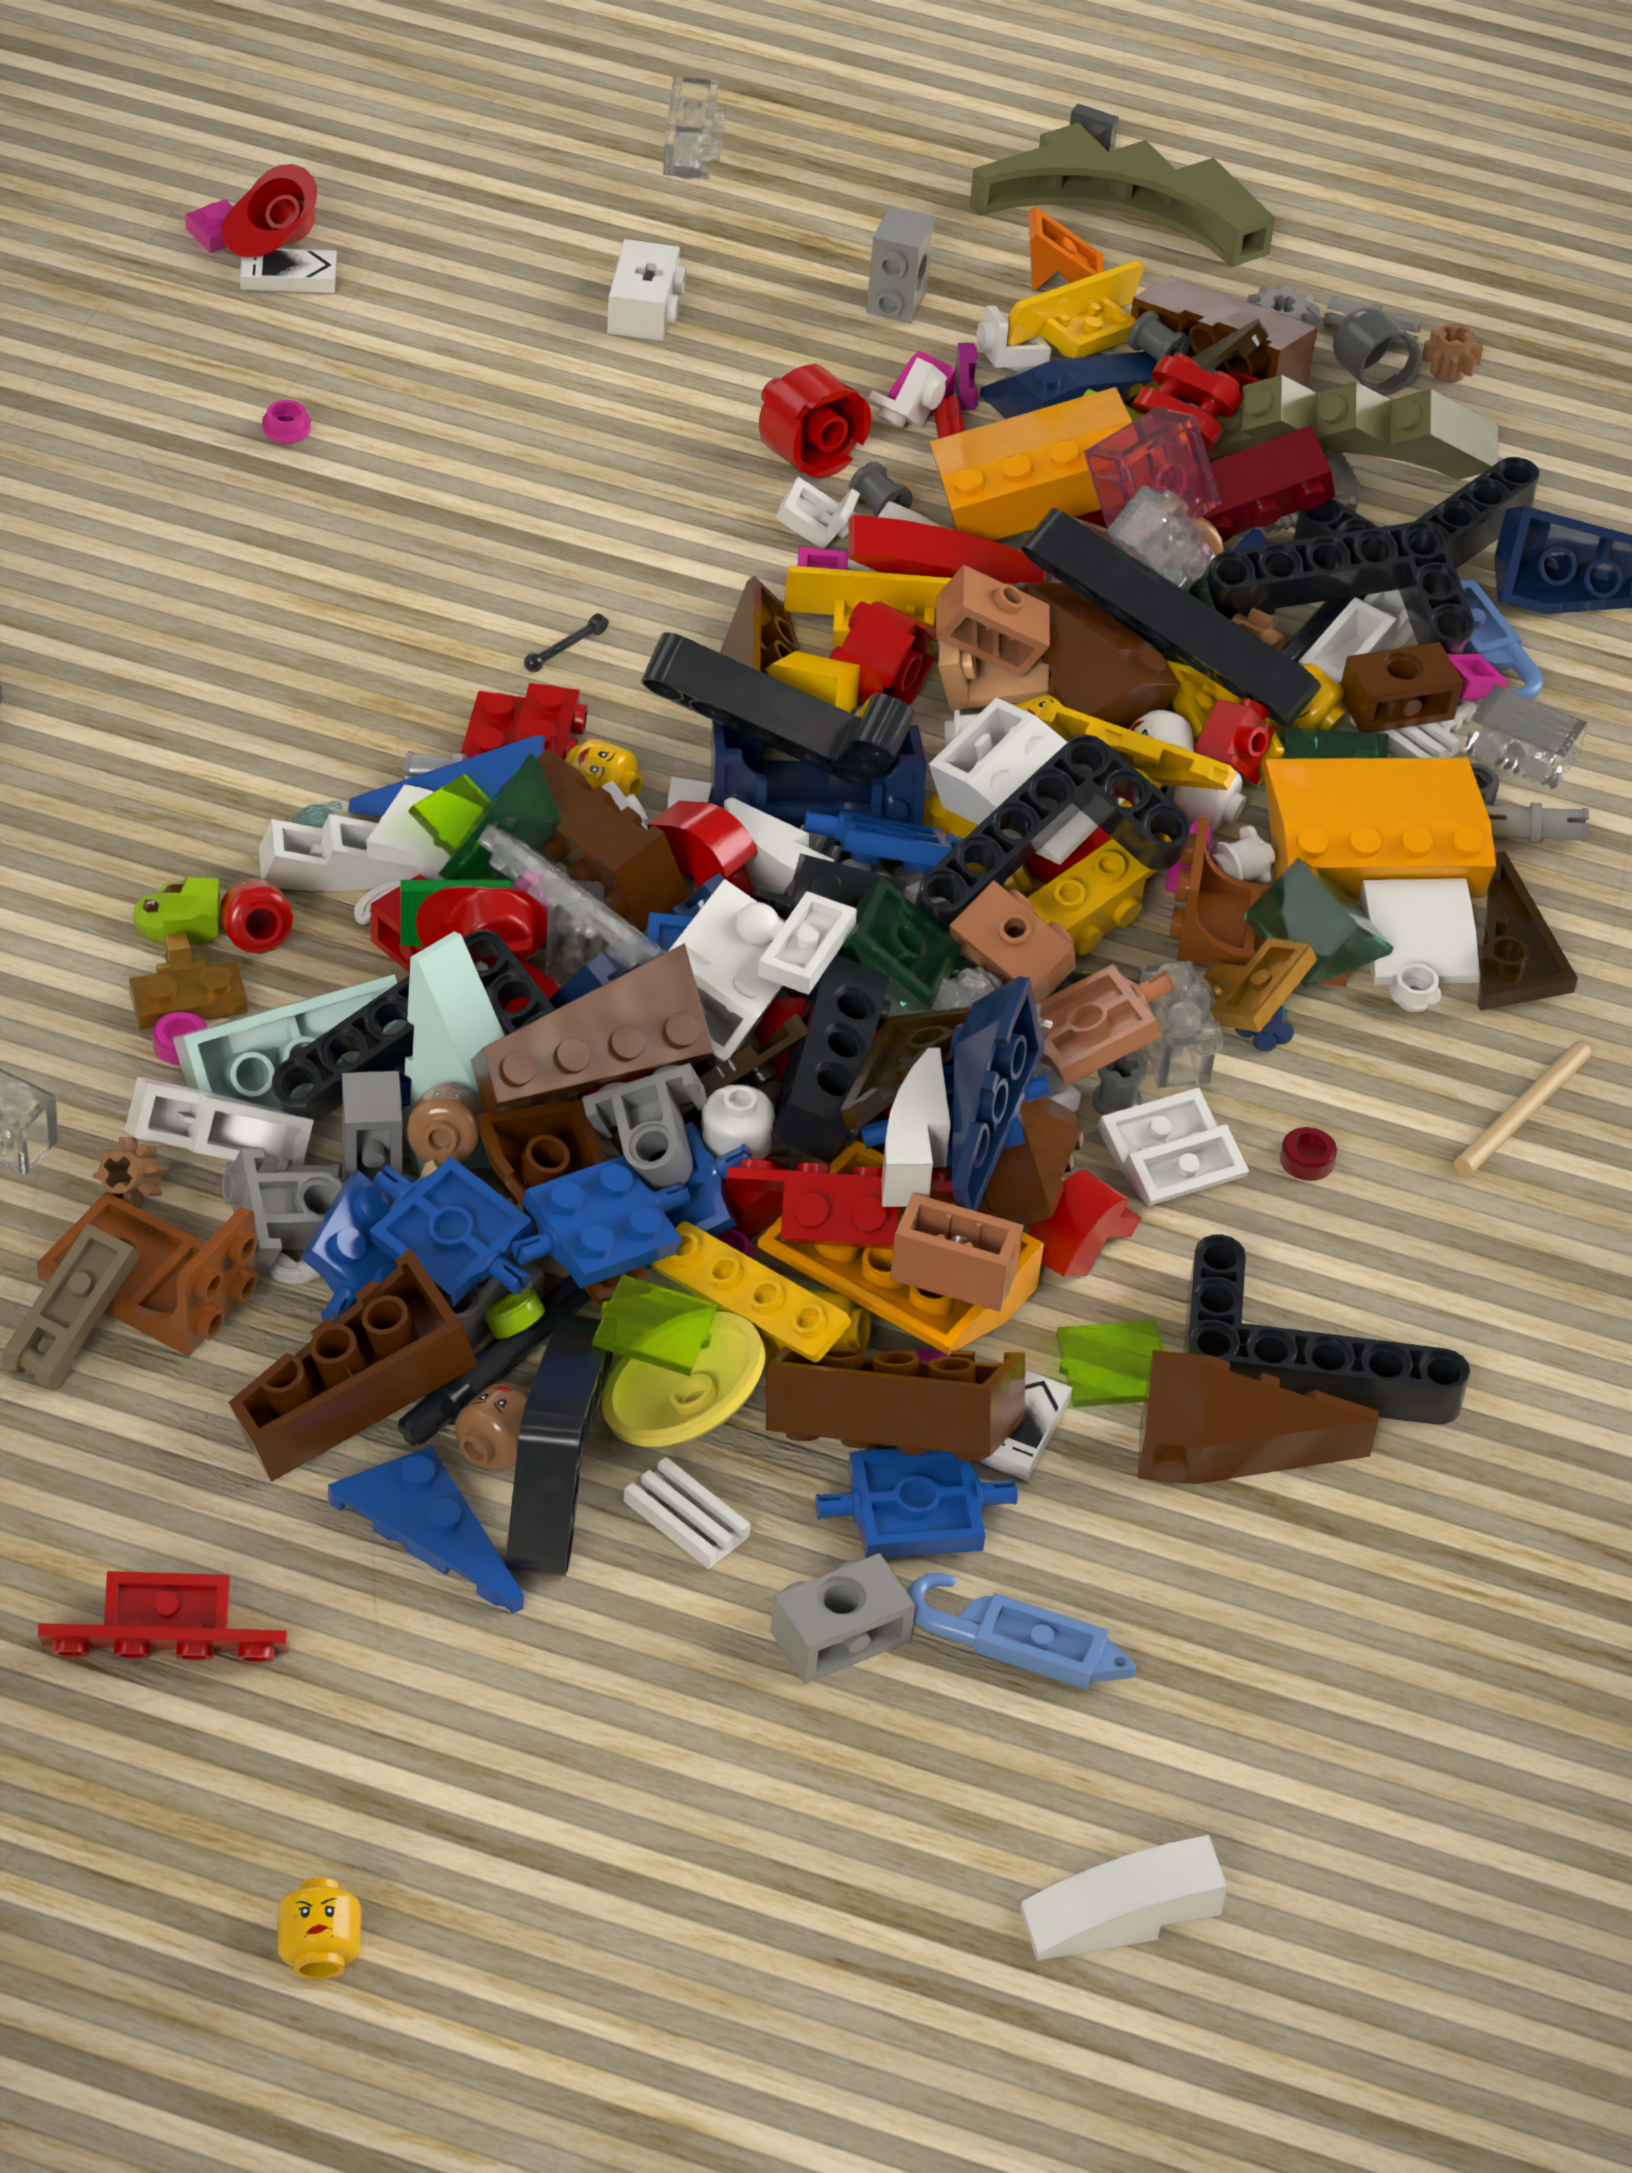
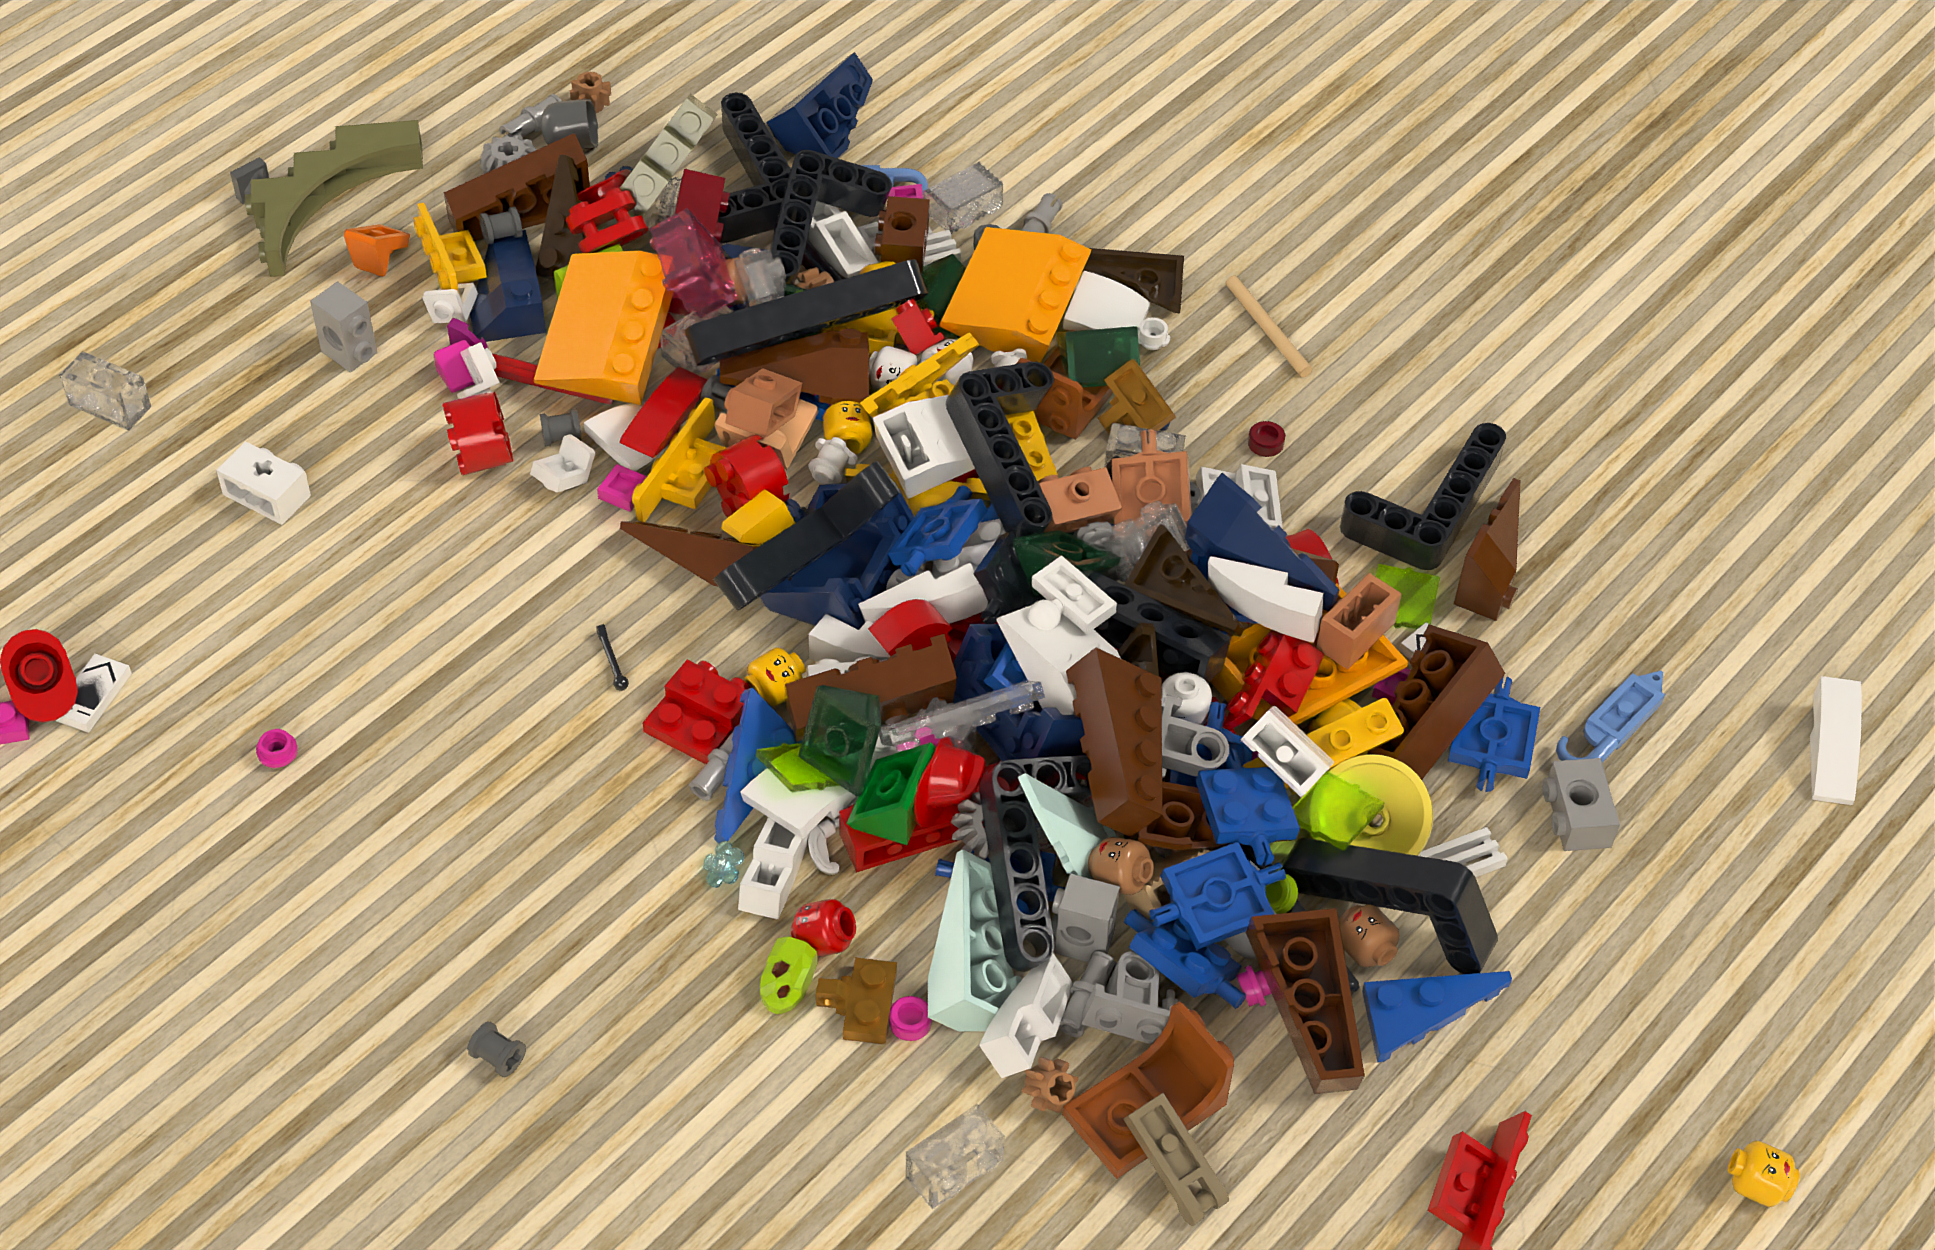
camera: 65 degrees left, 5 degrees up
(693, 1226) = (1287, 750): none -> white brick

